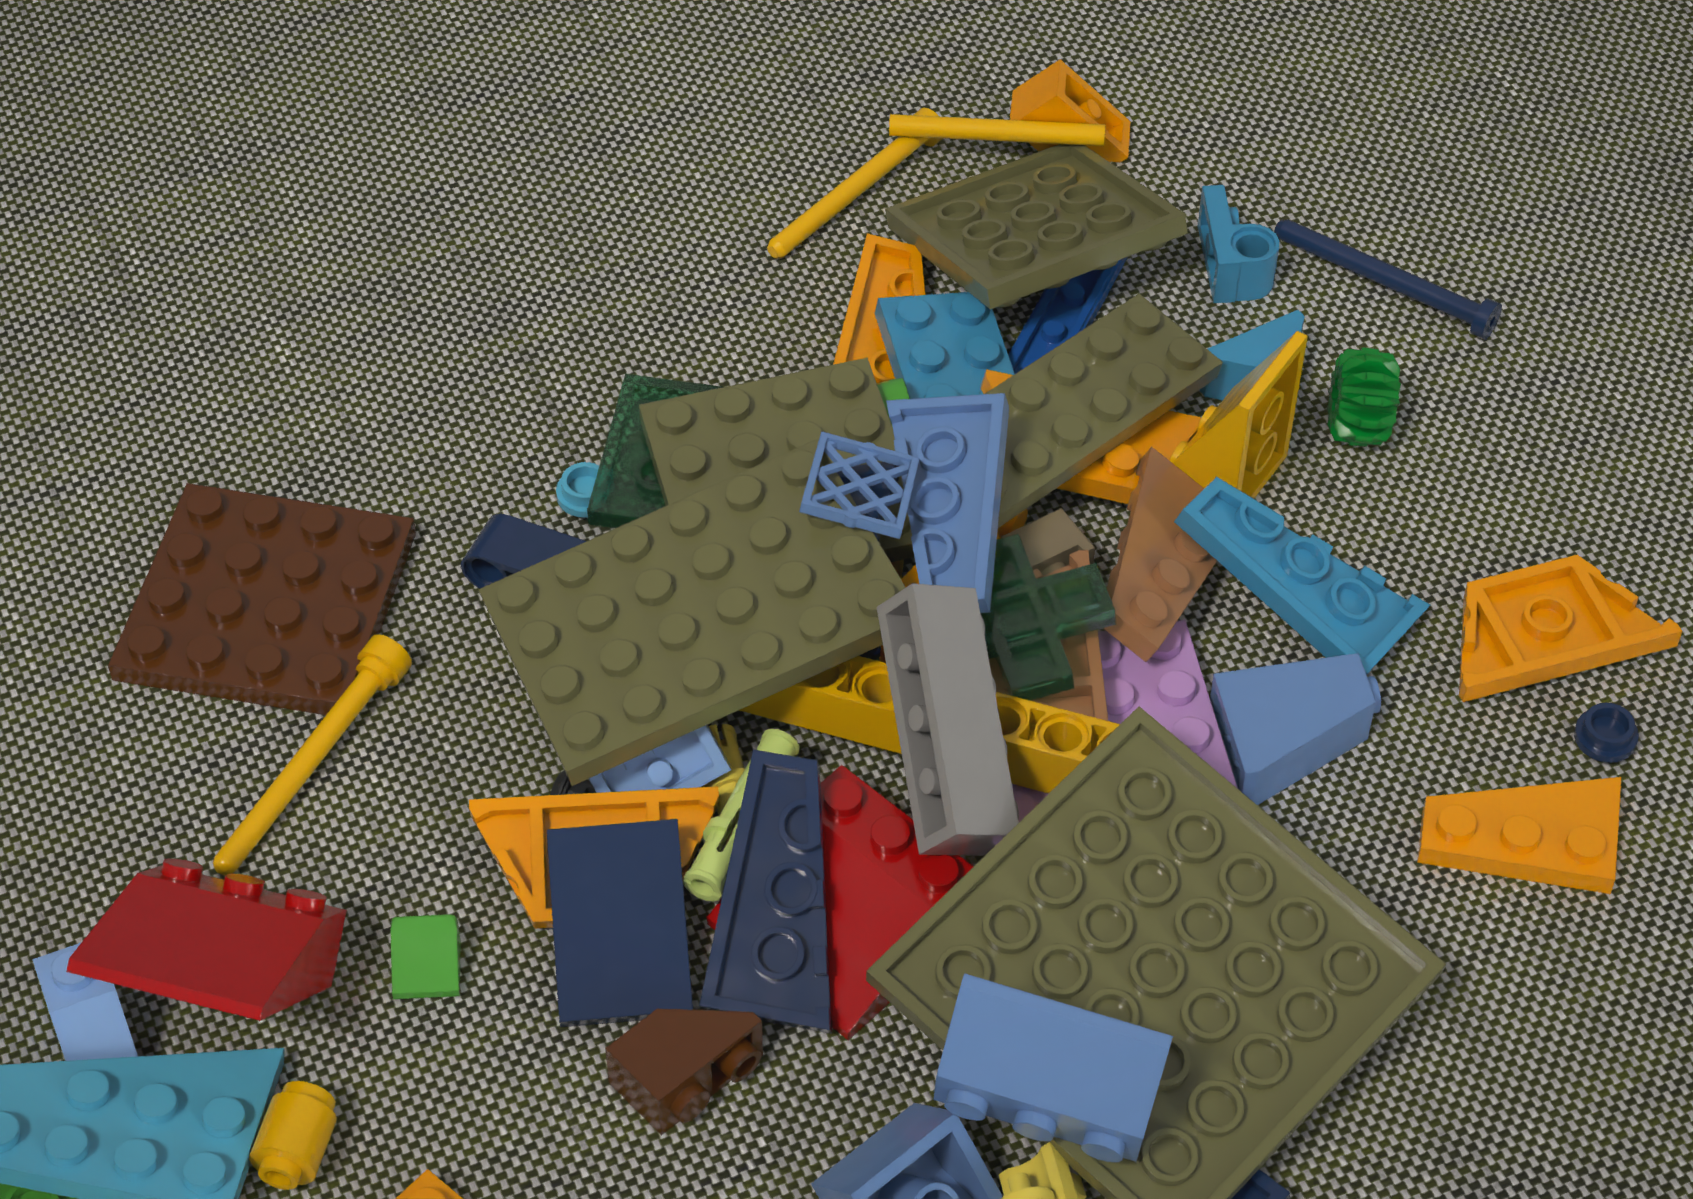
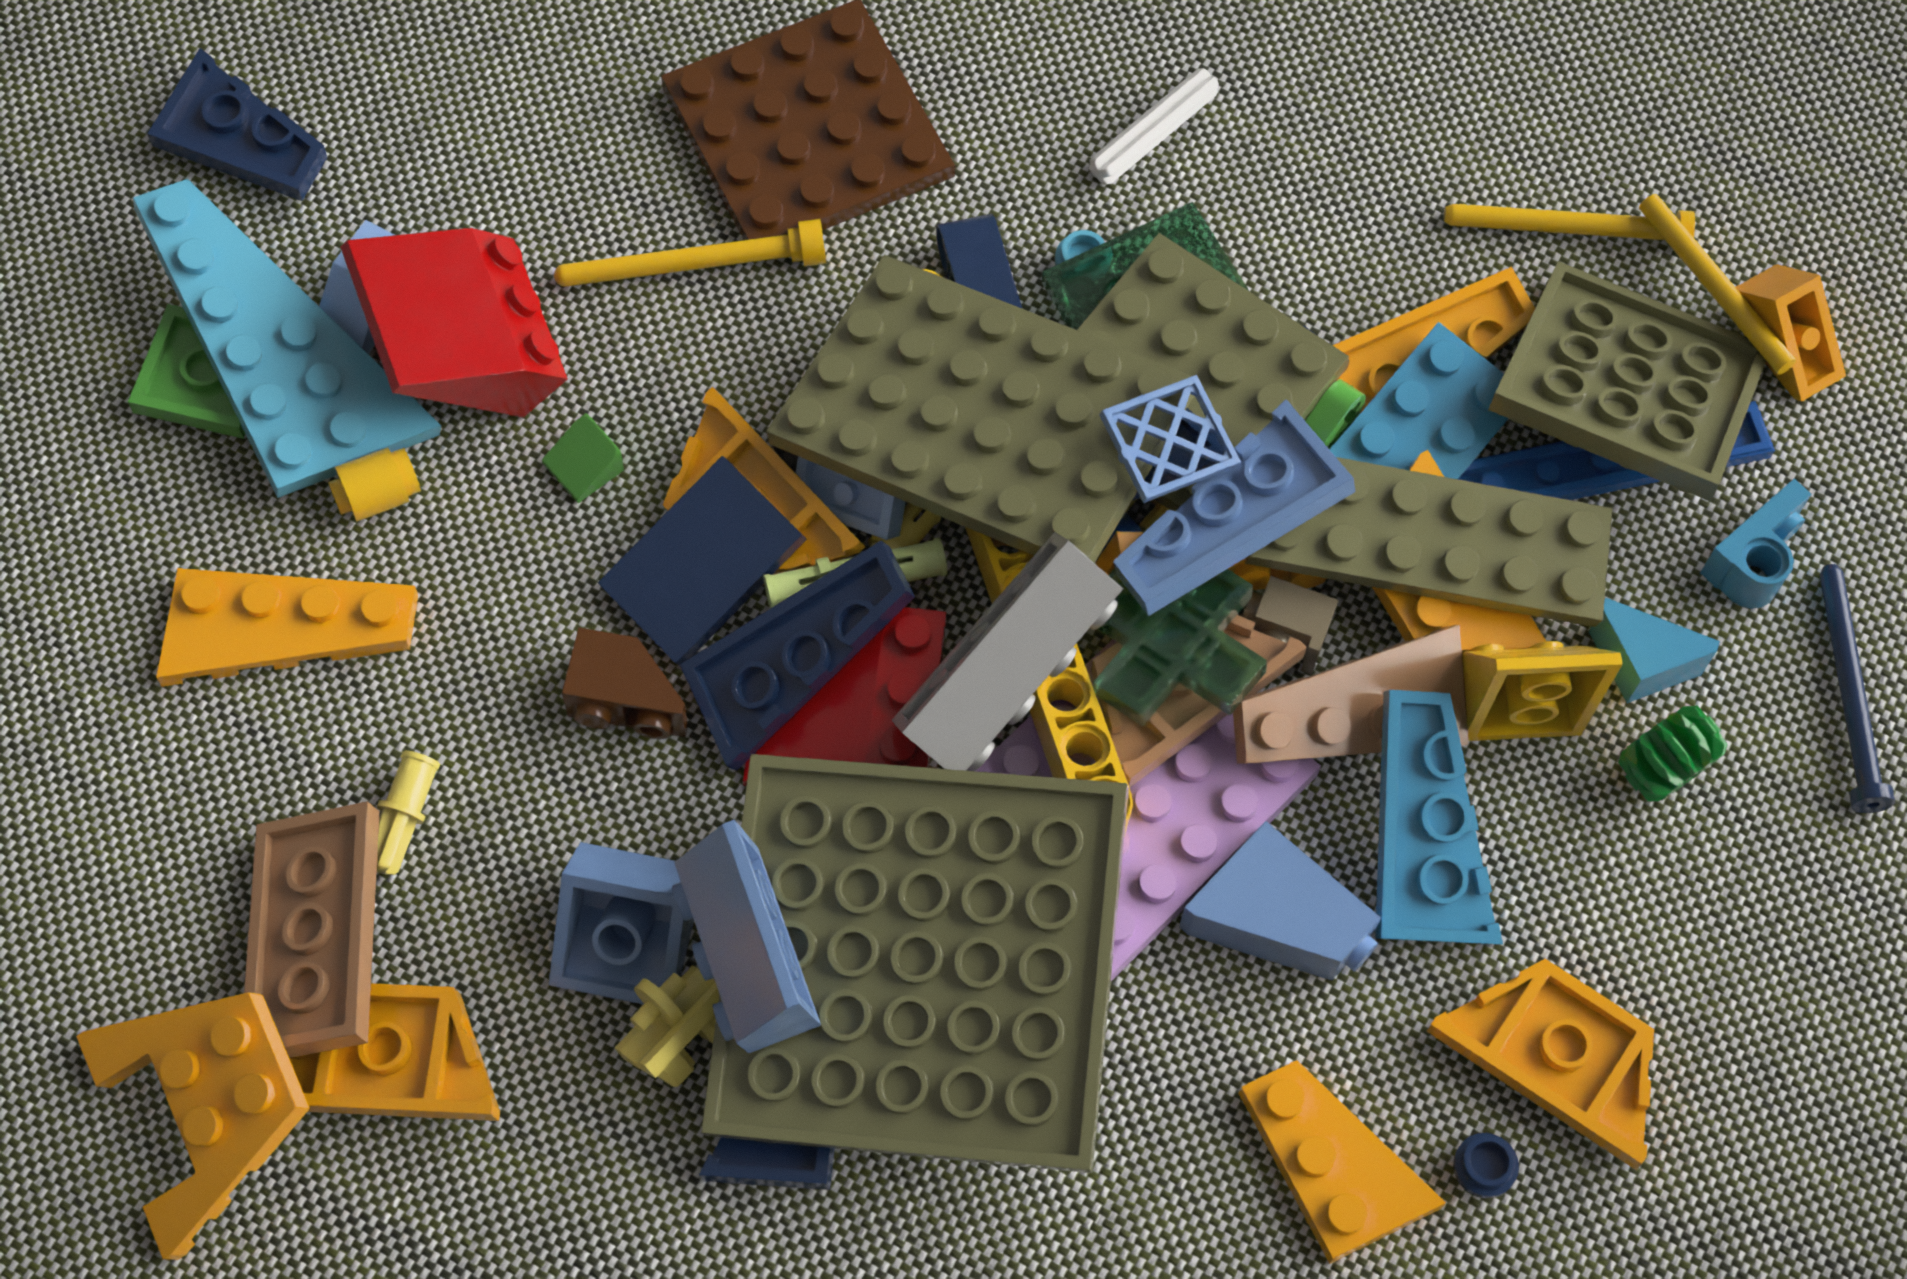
camera: 50 degrees right, 15 degrees up
(512, 374) = (1153, 126): none -> white axle

